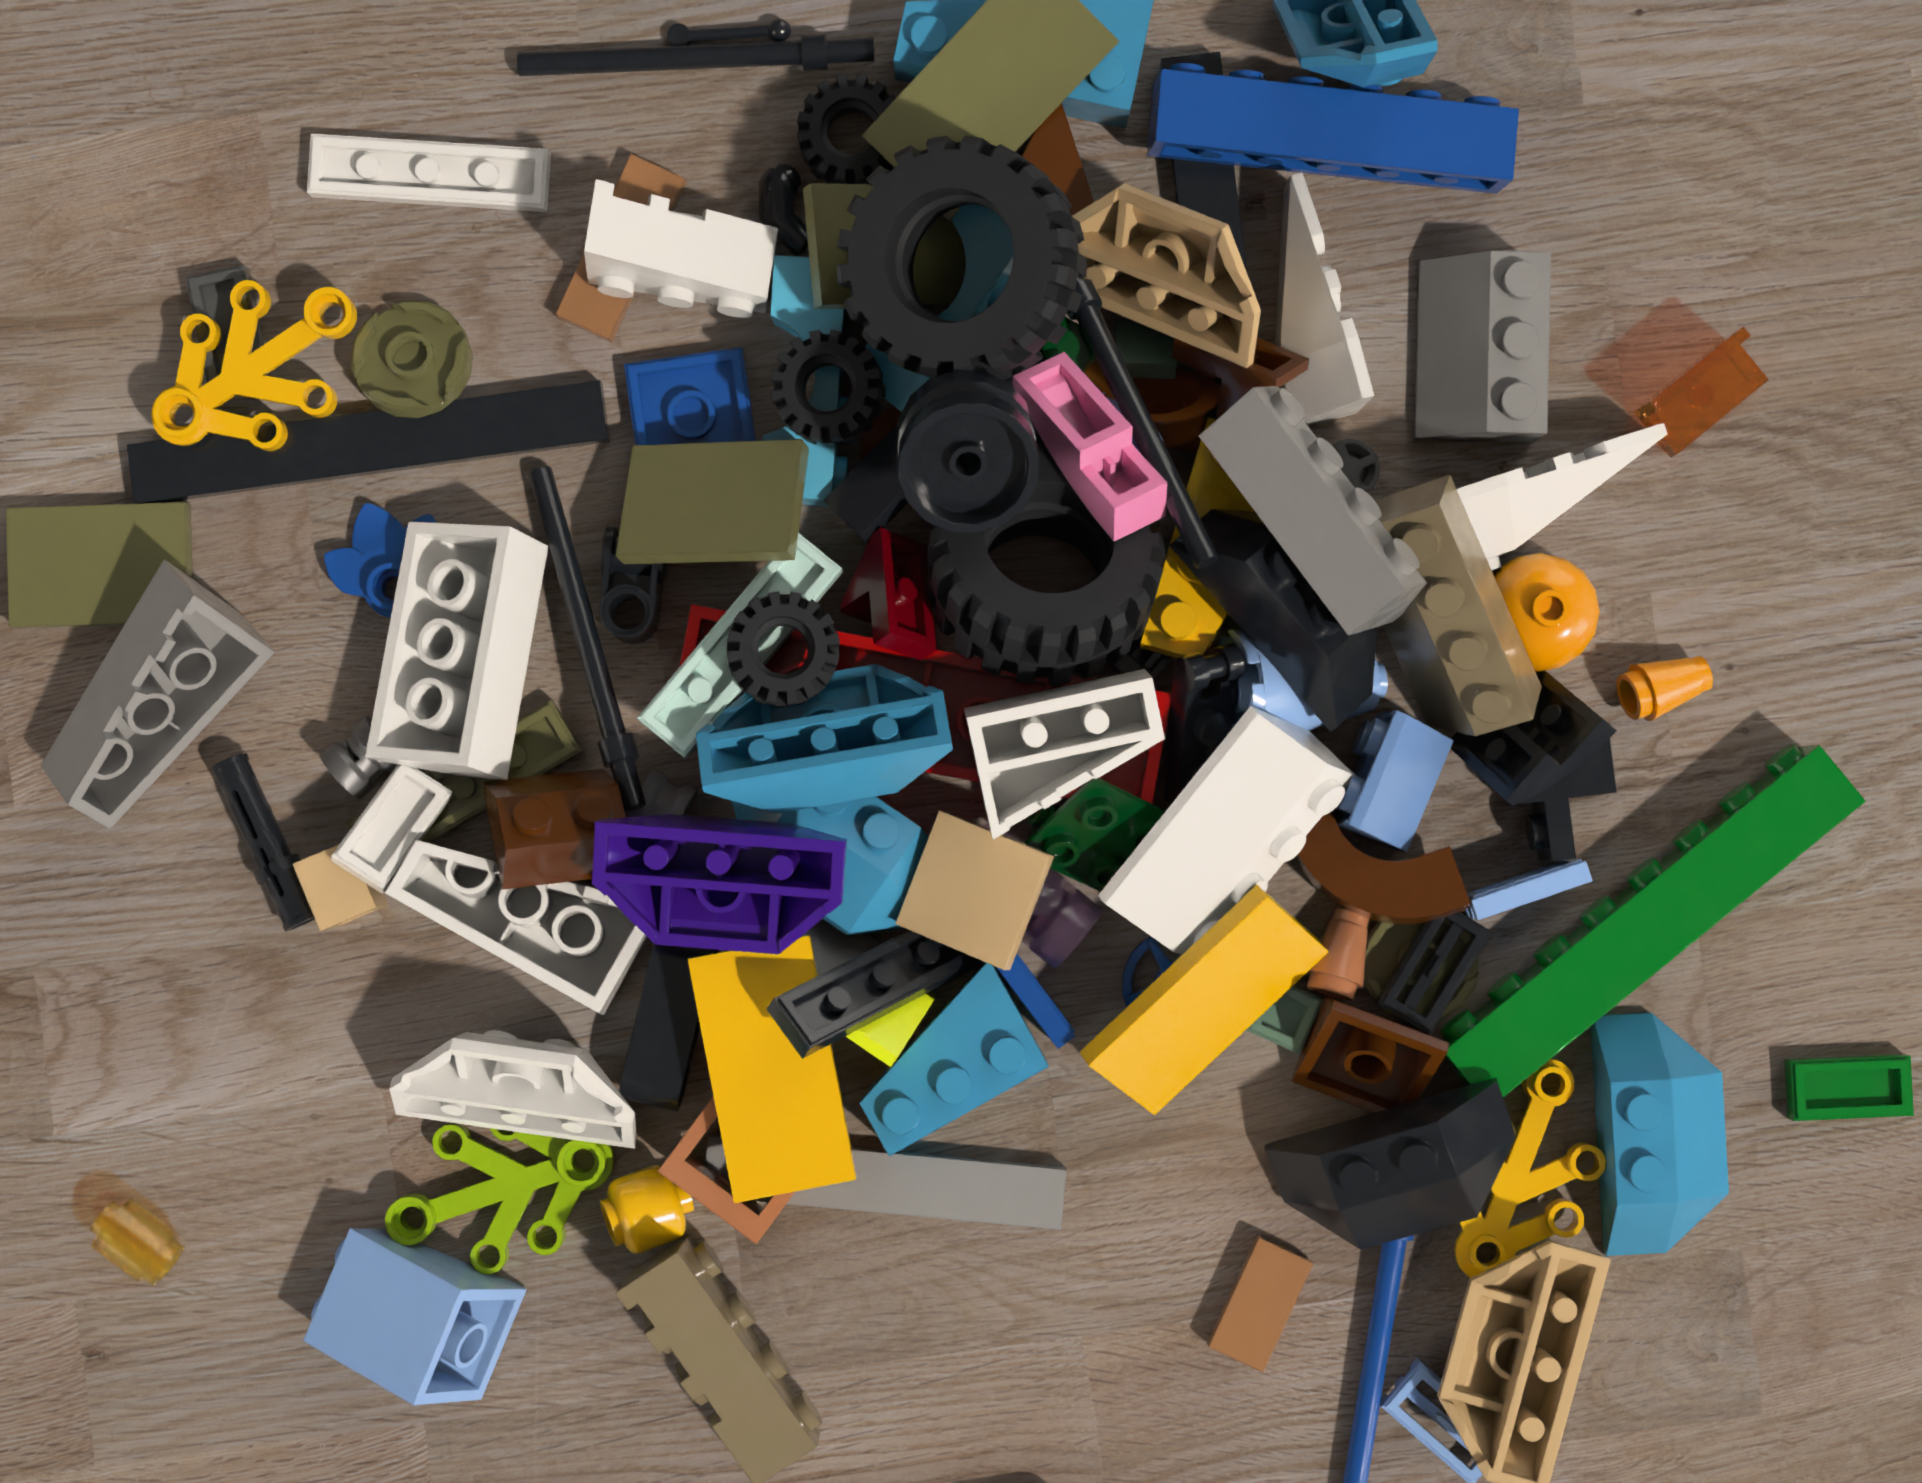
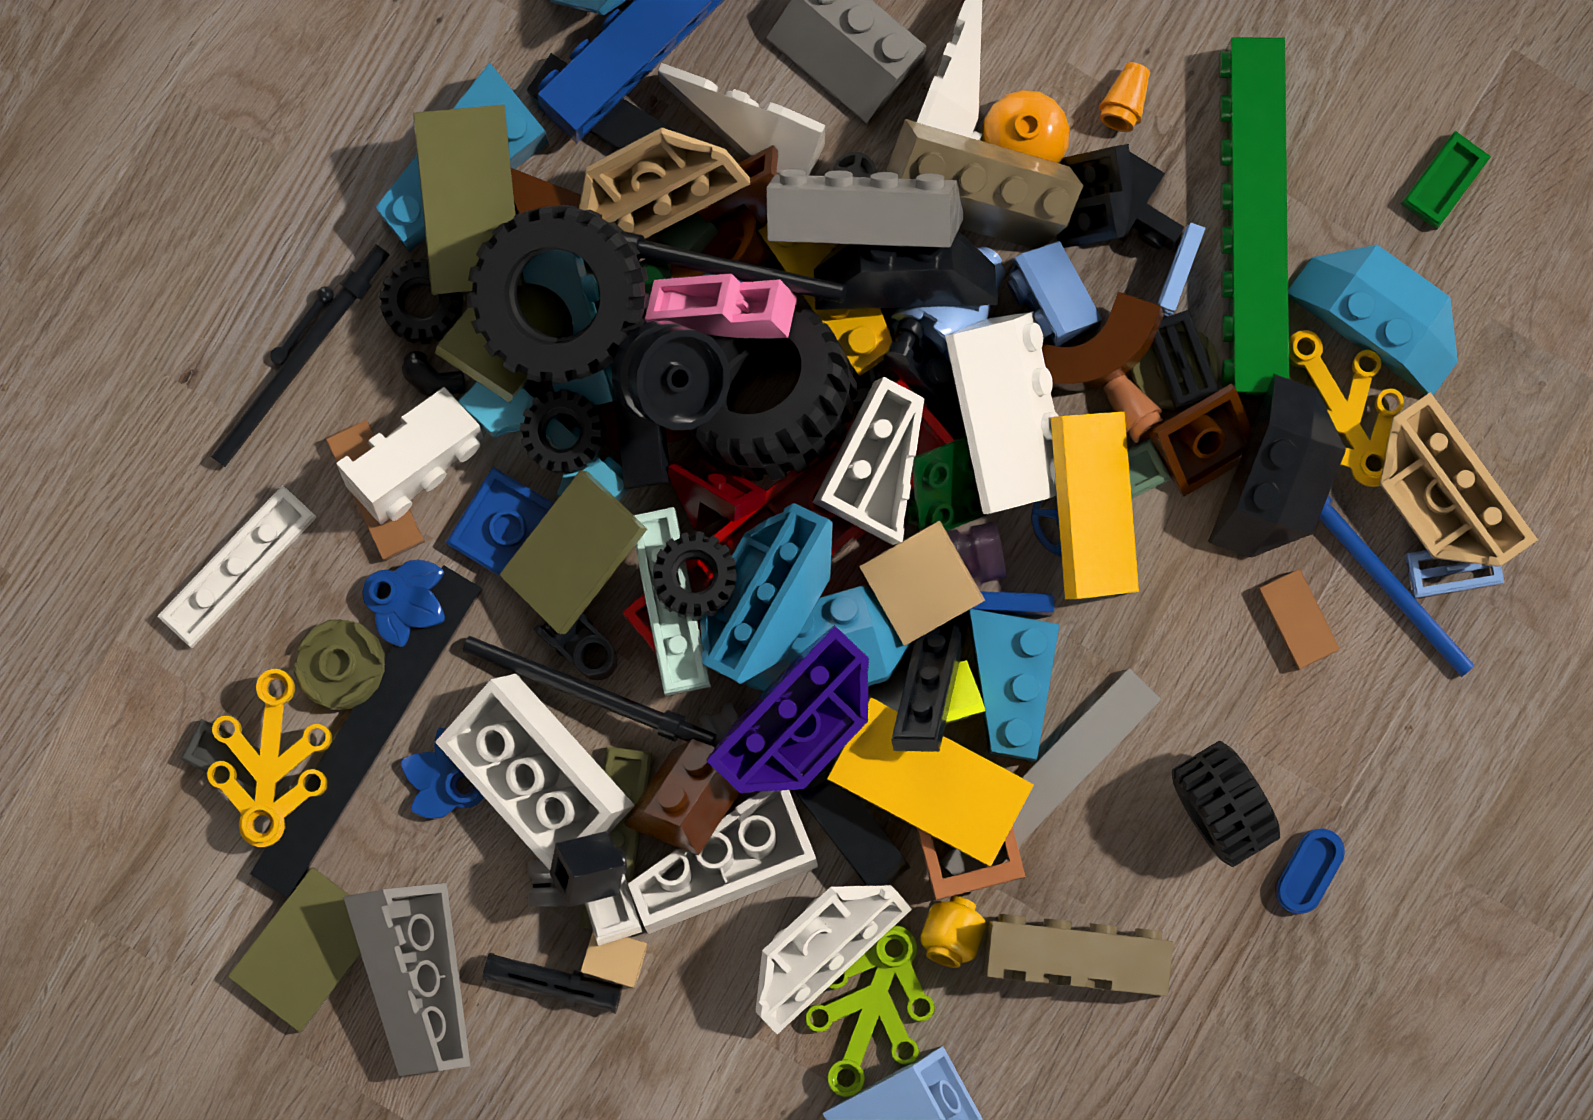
camera: 55 degrees left, 5 degrees down
(393, 788) = (587, 868): none -> black brick
(530, 376) = (409, 601): none -> blue plate
(1002, 1390) = (1226, 803): none -> black tyre

